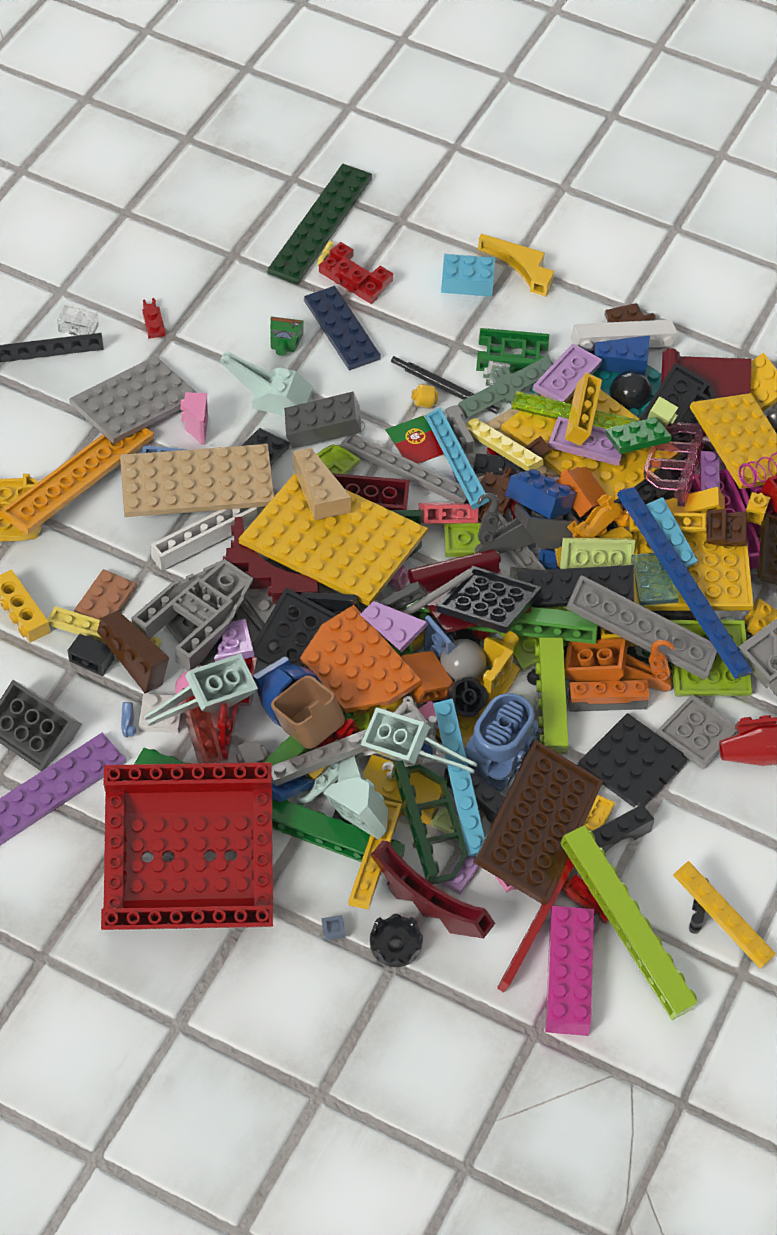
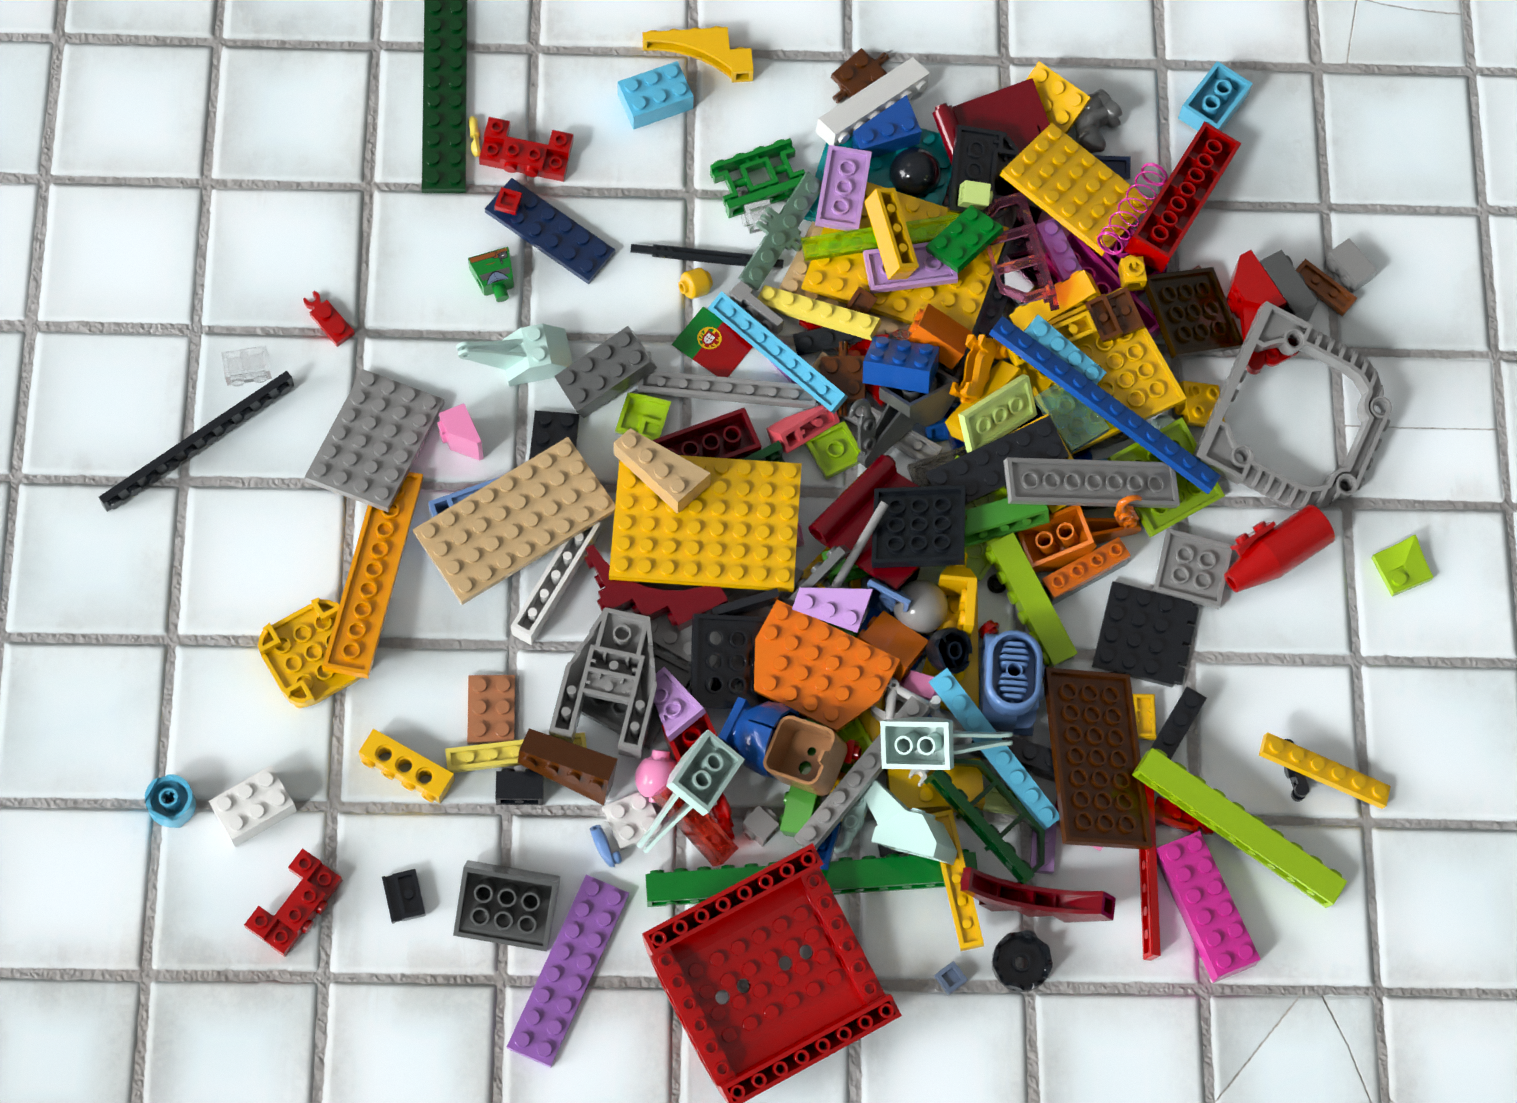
camera: 30 degrees left, 15 degrees up
(321, 294) = (508, 201): none -> red plate

